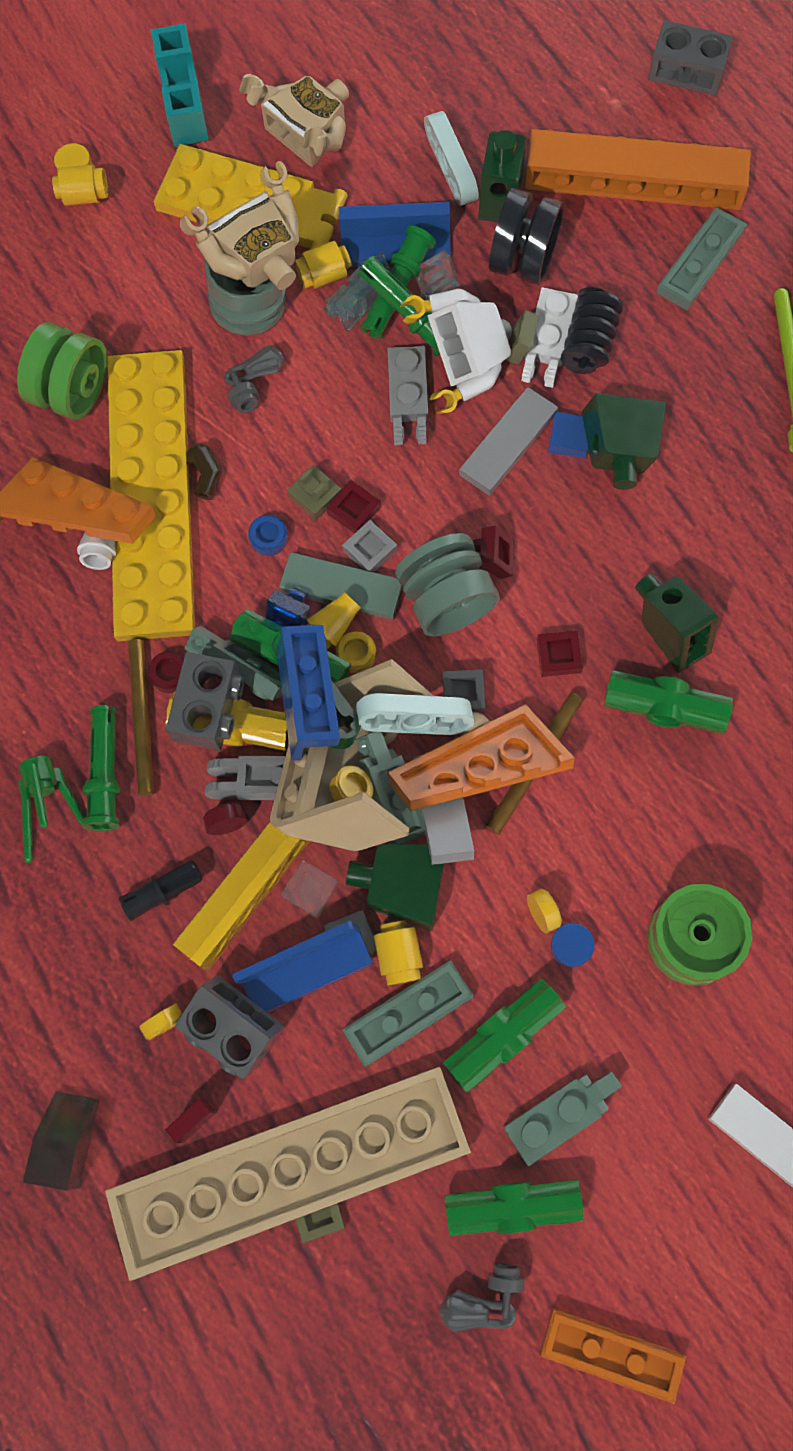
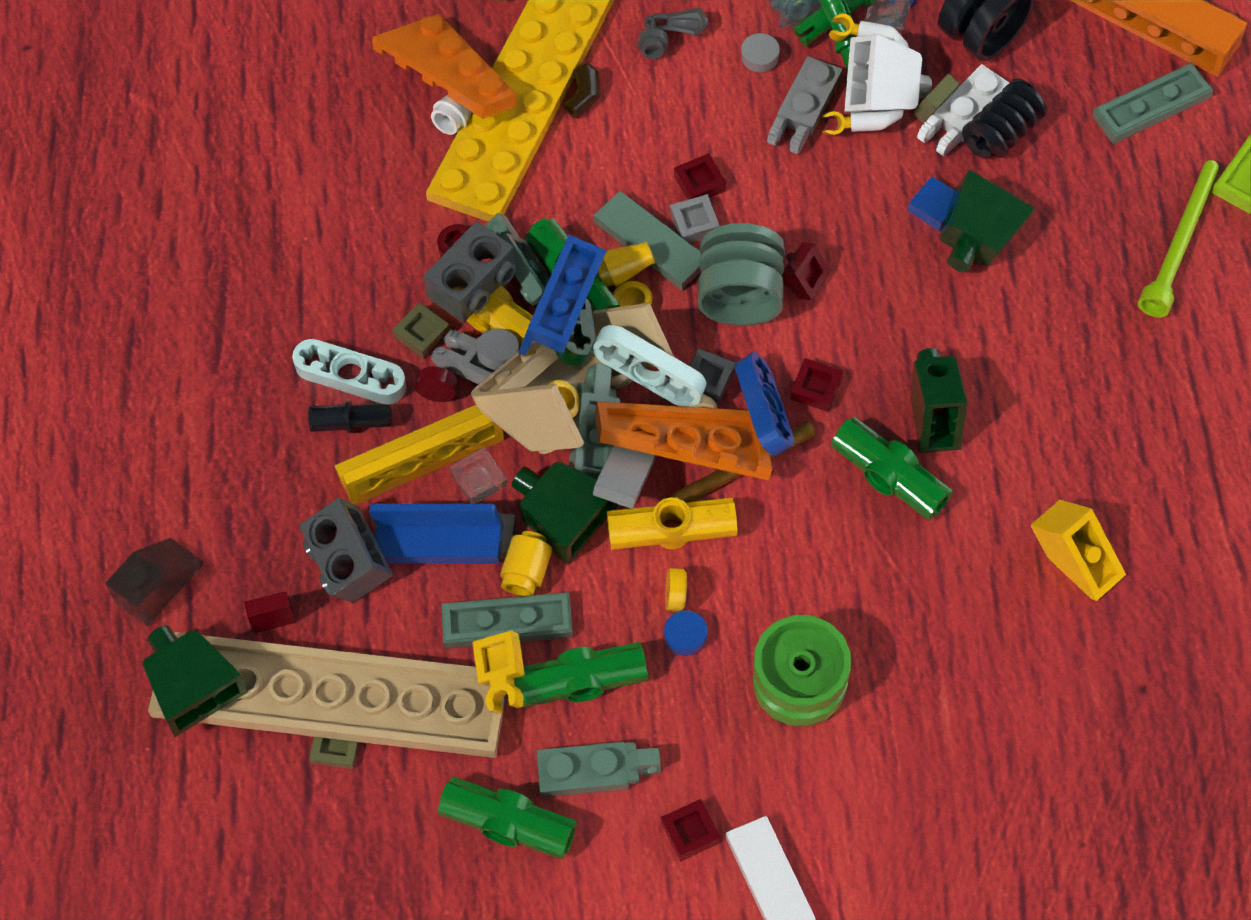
camera: 25 degrees right, 10 degrees down
(37, 782) = (294, 281): green plant -> none
(102, 787) = (346, 309): green pin -> none
(107, 859) = (357, 386): none -> light aqua beam
(141, 718) = (411, 271): pearl gold bar -> none
(152, 1236) = (189, 678): none -> dark green torso
(161, 1022) = (286, 521): yellow tile -> none
(181, 772) = (421, 330): none -> olive tile
(264, 760) = (496, 347): none -> light grey tile
(268, 535) = (609, 169): blue tile -> none
(288, 609) = (594, 233): clear blue tile -> none
(313, 492) = (670, 149): olive tile -> none
(343, 363) = (760, 52): none -> light grey tile
(433, 1070) = (497, 665): none -> yellow plate
(465, 1312) = (417, 882): dark grey piece -> none
(508, 441) = (874, 184): light grey tile -> none
(529, 834) = (699, 522): none -> yellow piece
(530, 697) = (764, 404): none -> blue beam
(676, 1129) = (690, 830): none -> dark red tile

